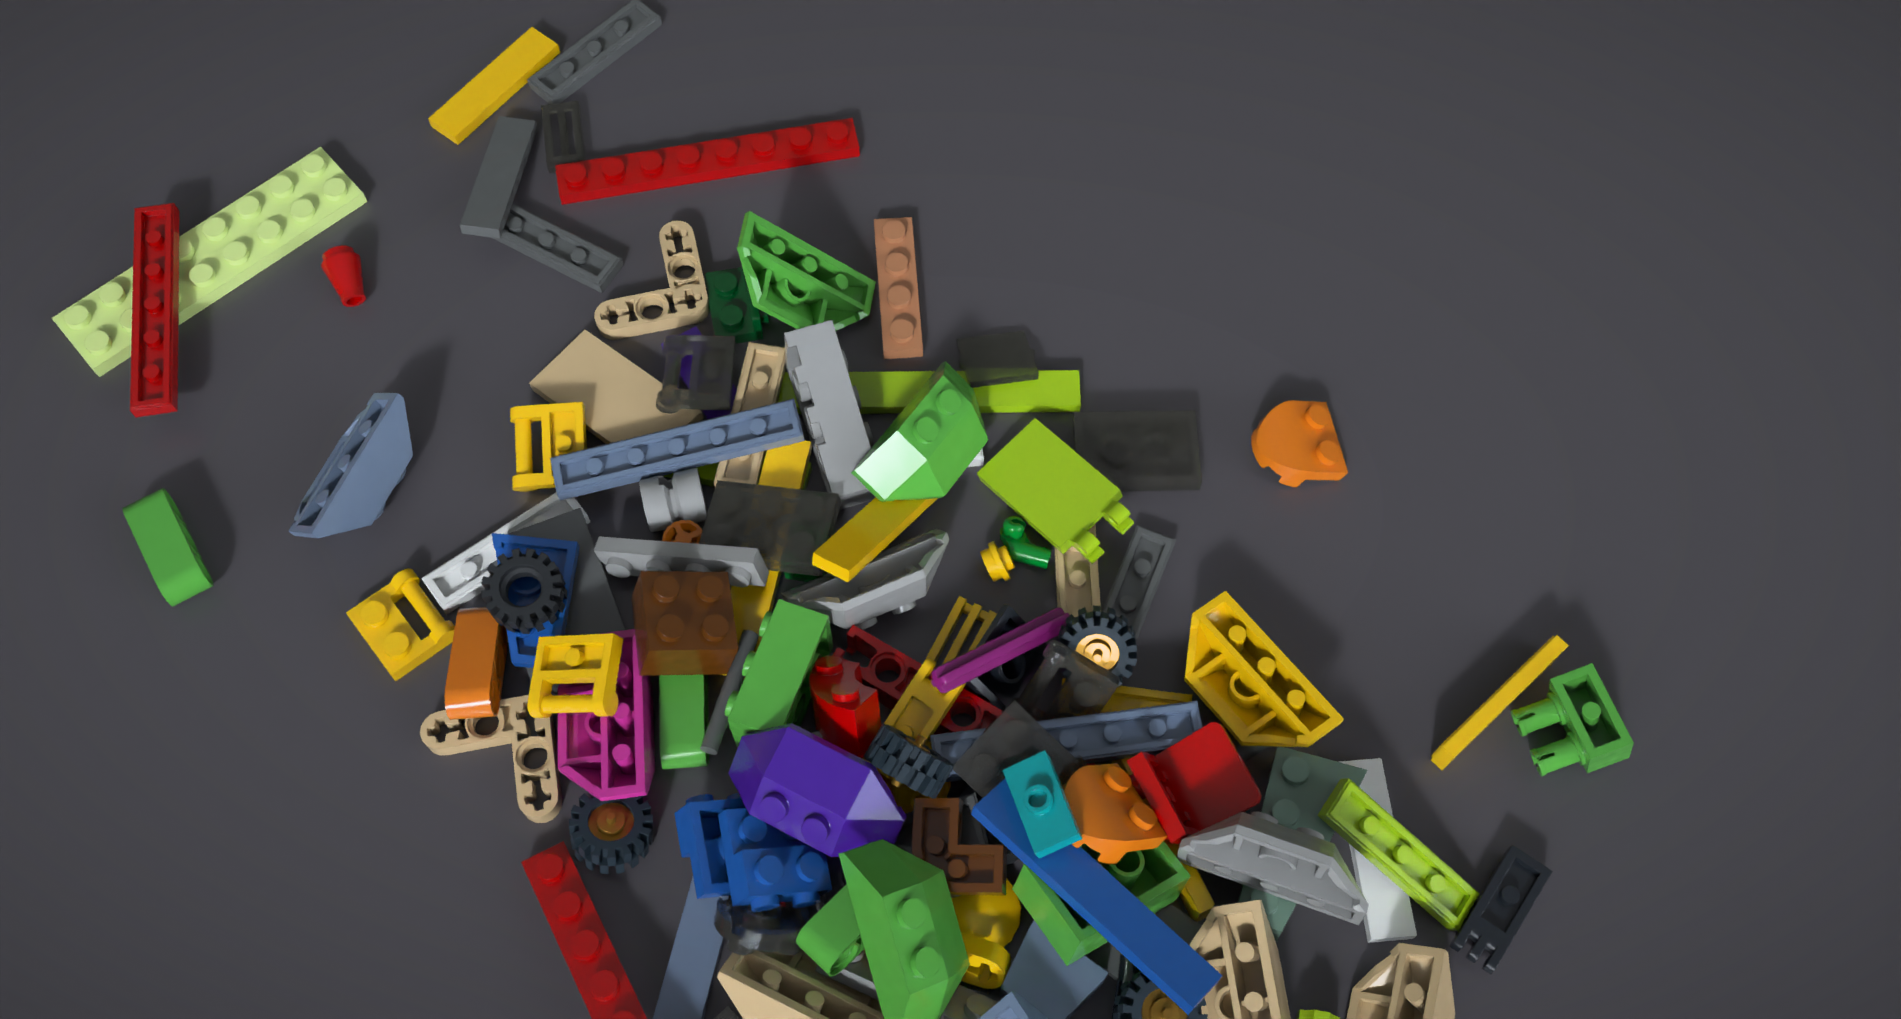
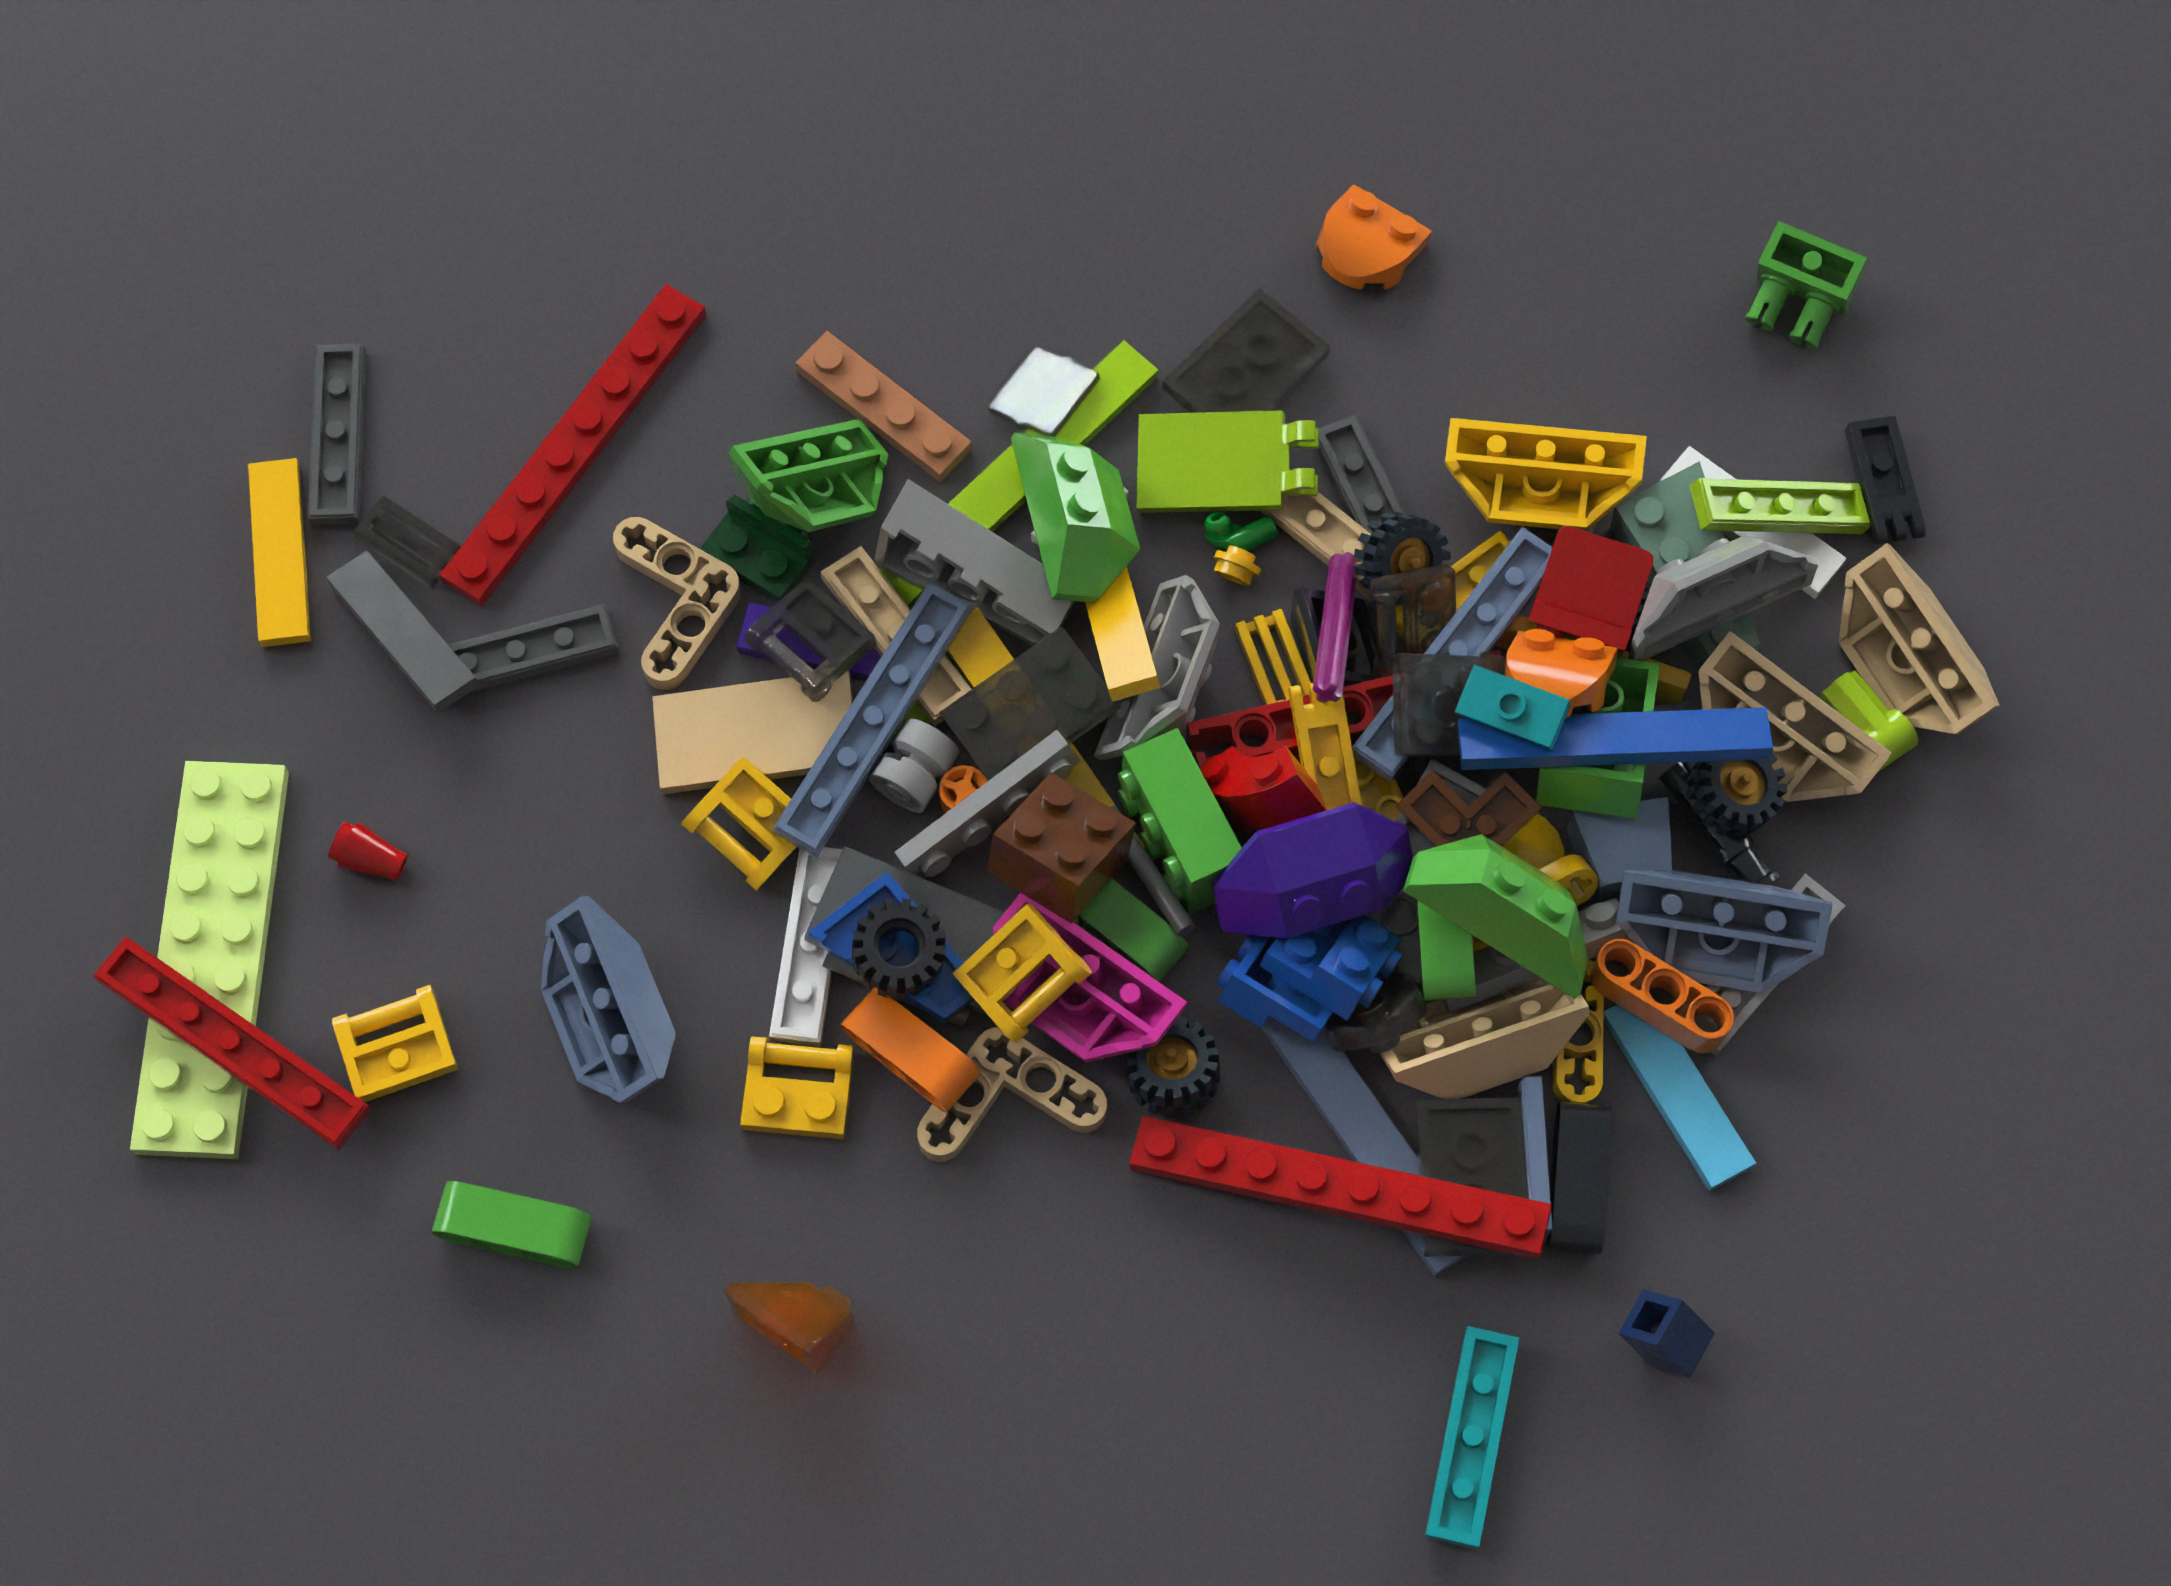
camera: 45 degrees left, 5 degrees up
(225, 757) = (794, 1317): none -> clear orange slope
(230, 400) = (398, 1058): none -> yellow plate
(908, 761) = (1368, 777): black wheel -> none
(1498, 702) = (1732, 318): yellow tile -> none

